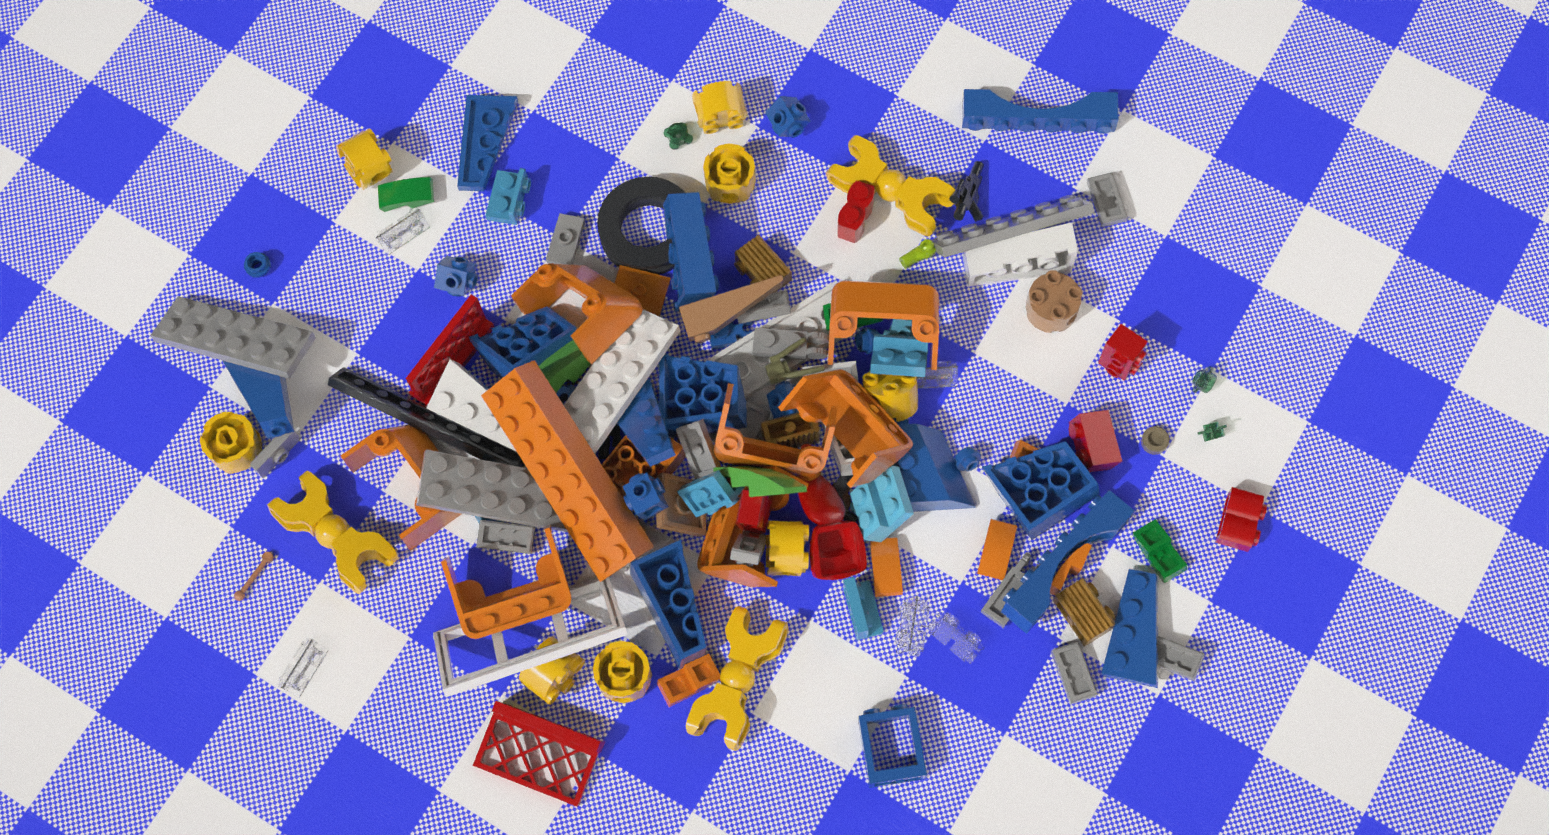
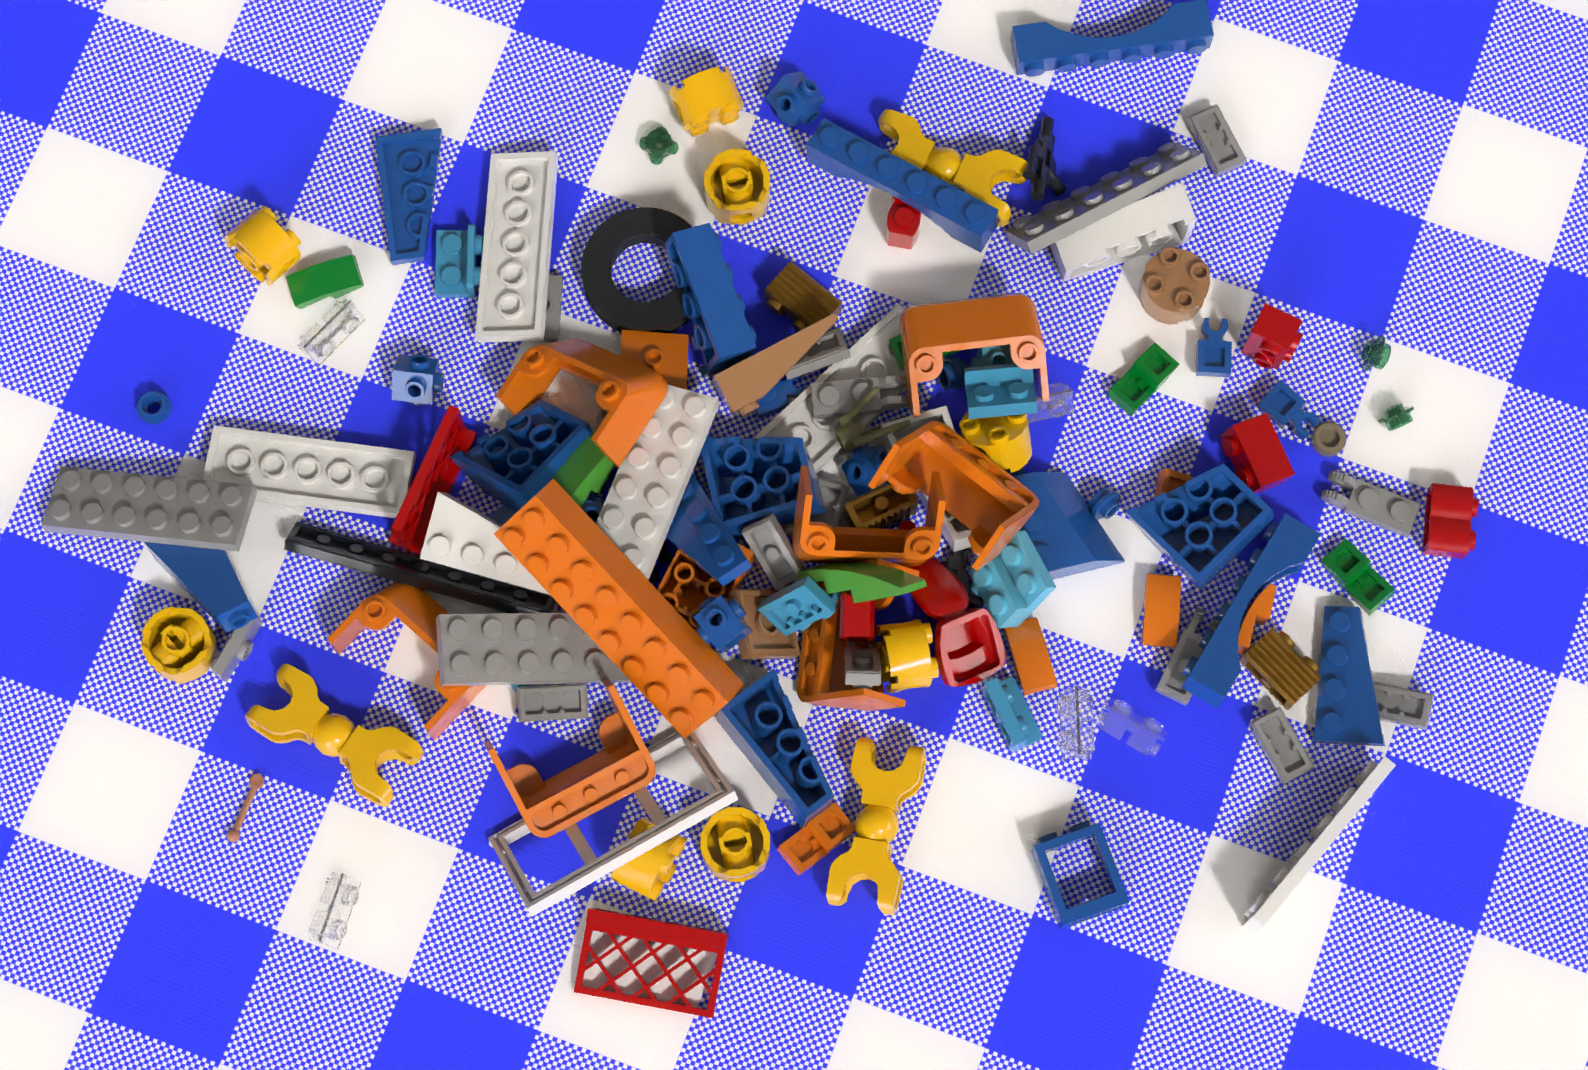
camera: 15 degrees left, 5 degrees up
(359, 329) = (312, 471): none -> white plate
(553, 191) = (517, 247): none -> white plate
(889, 214) = (947, 206): none -> blue arch
(923, 251) = (999, 247): lime arm -> none
(1016, 369) = (1142, 379): none -> green slope
(1075, 358) = (1213, 354): none -> blue plate
(1094, 749) = (1310, 852): none -> white plate
(1124, 409) = (1285, 406): none -> blue plate
(1181, 496) = (1373, 504): none -> light grey hinge

